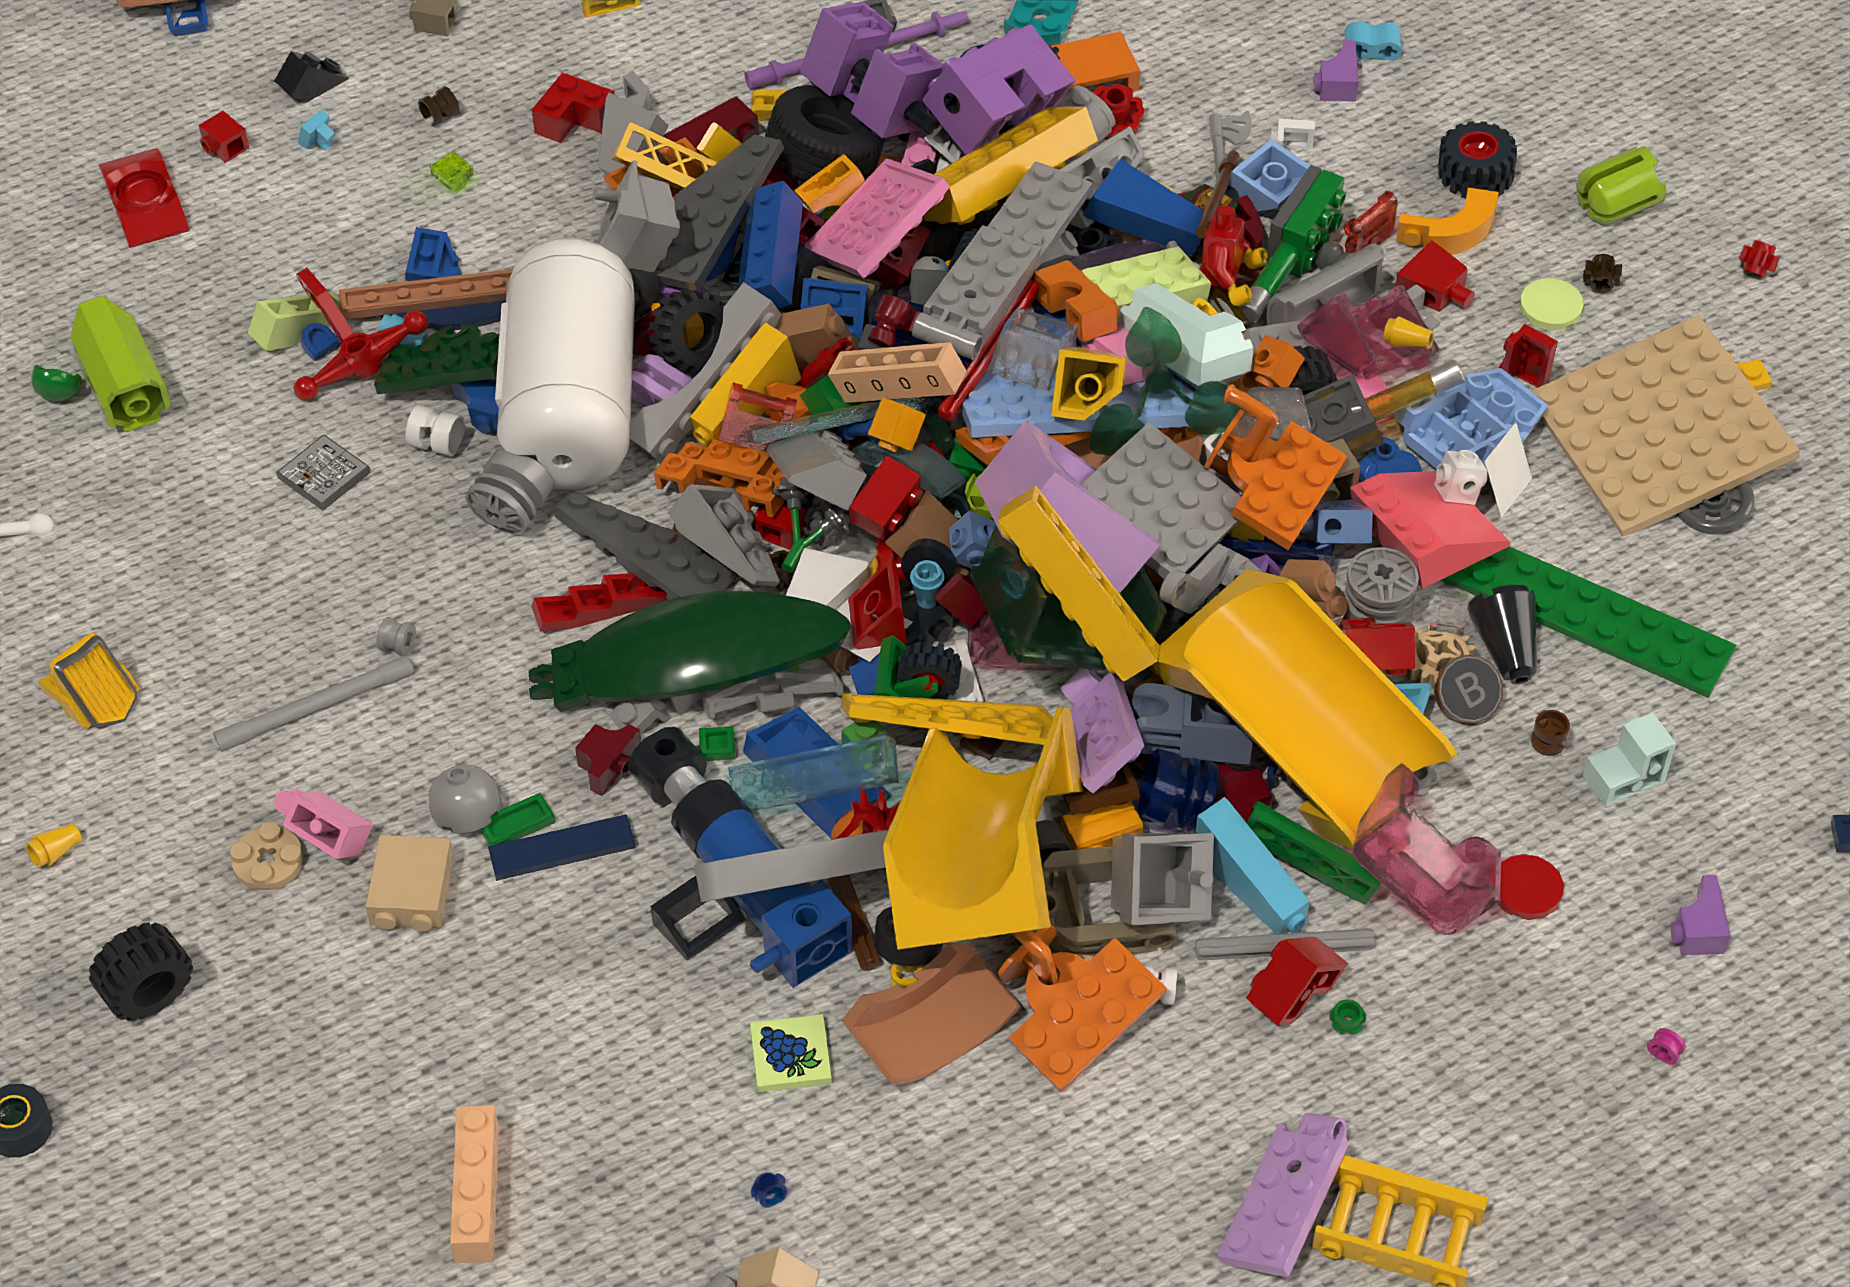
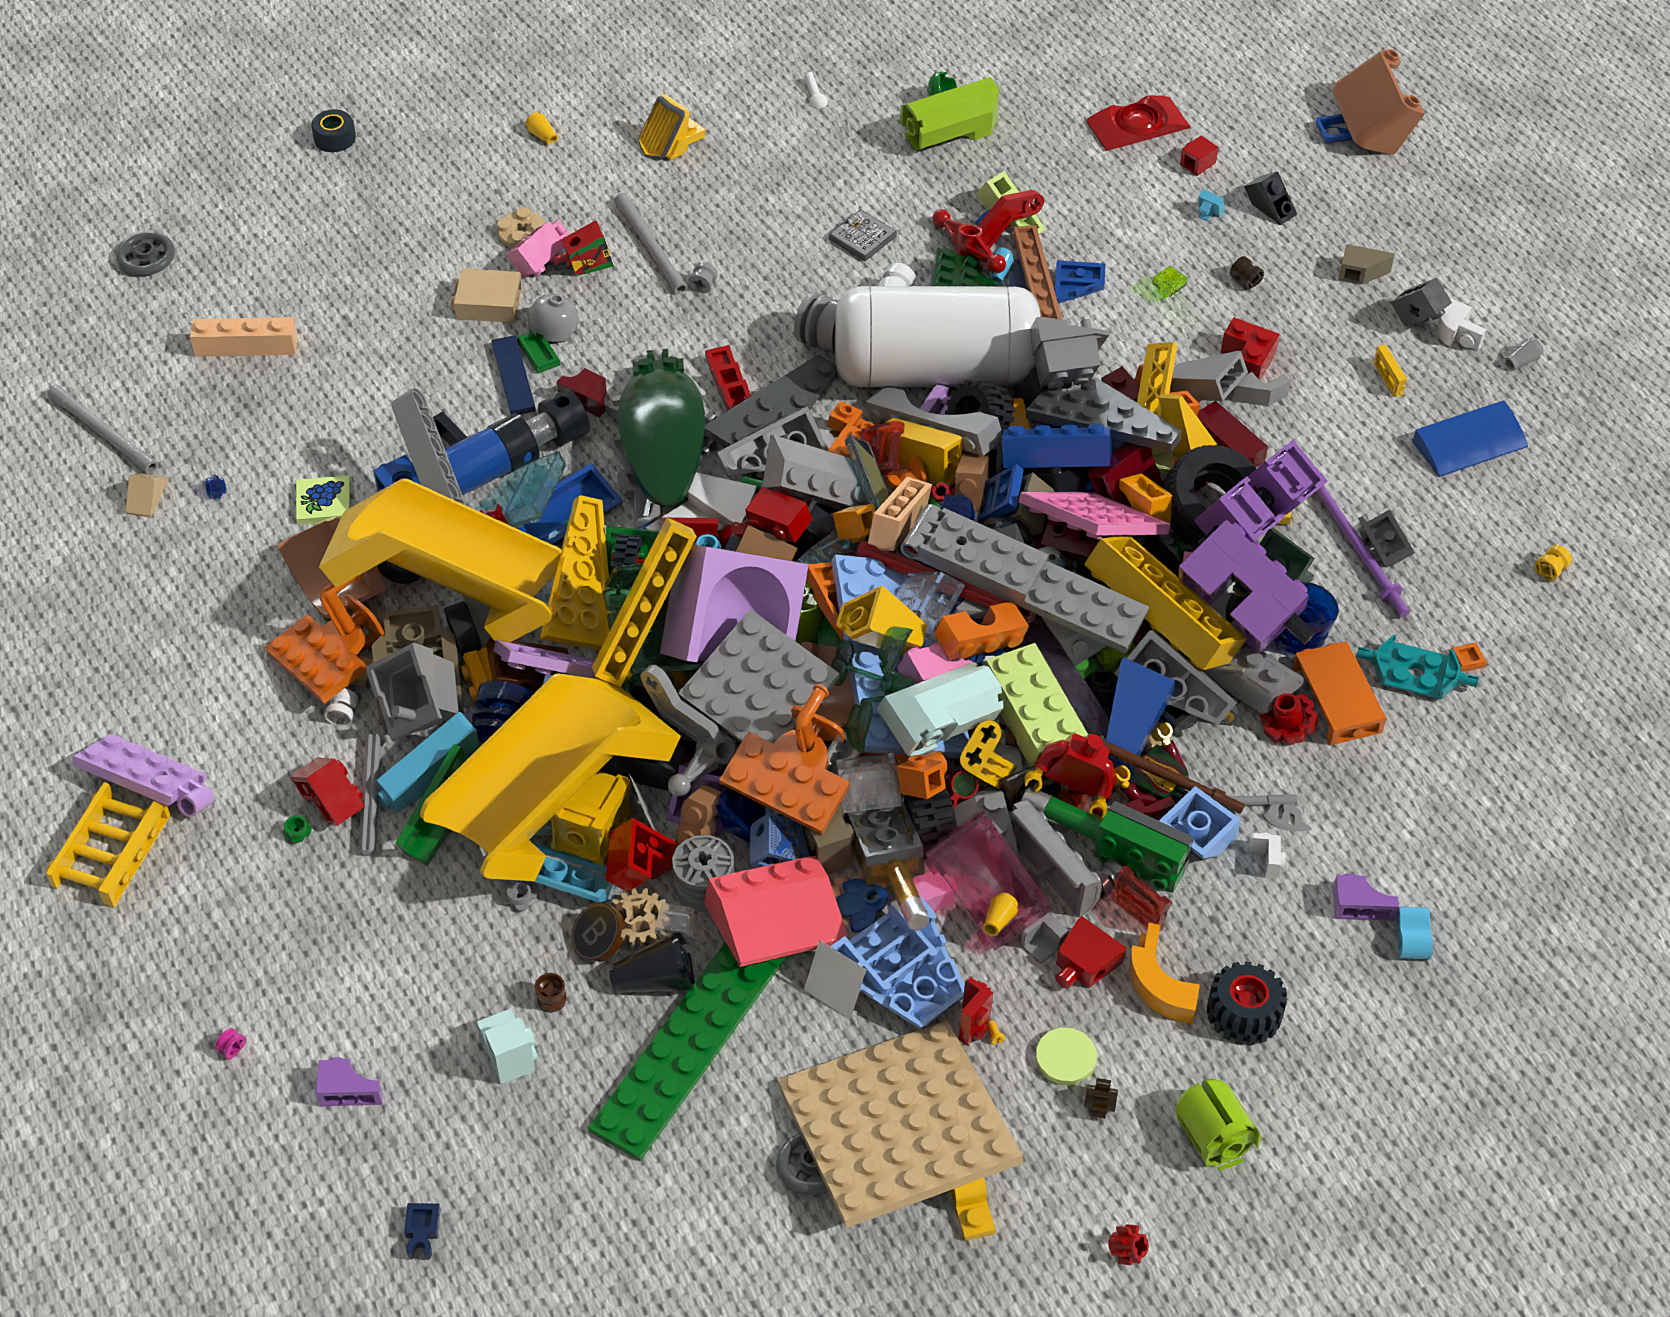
camera: 90 degrees right, 0 degrees up
(140, 971) = (421, 165): black tyre -> none
(334, 746) = (585, 251): none -> red torso
(717, 743) = (597, 455): green tile -> none
(891, 316) = (942, 495): dark red piece -> none
(1419, 865) = (419, 873): clear pink windscreen -> none
(1460, 477) = (812, 927): white brick -> none
(1529, 887) = (402, 965): red tile -> none

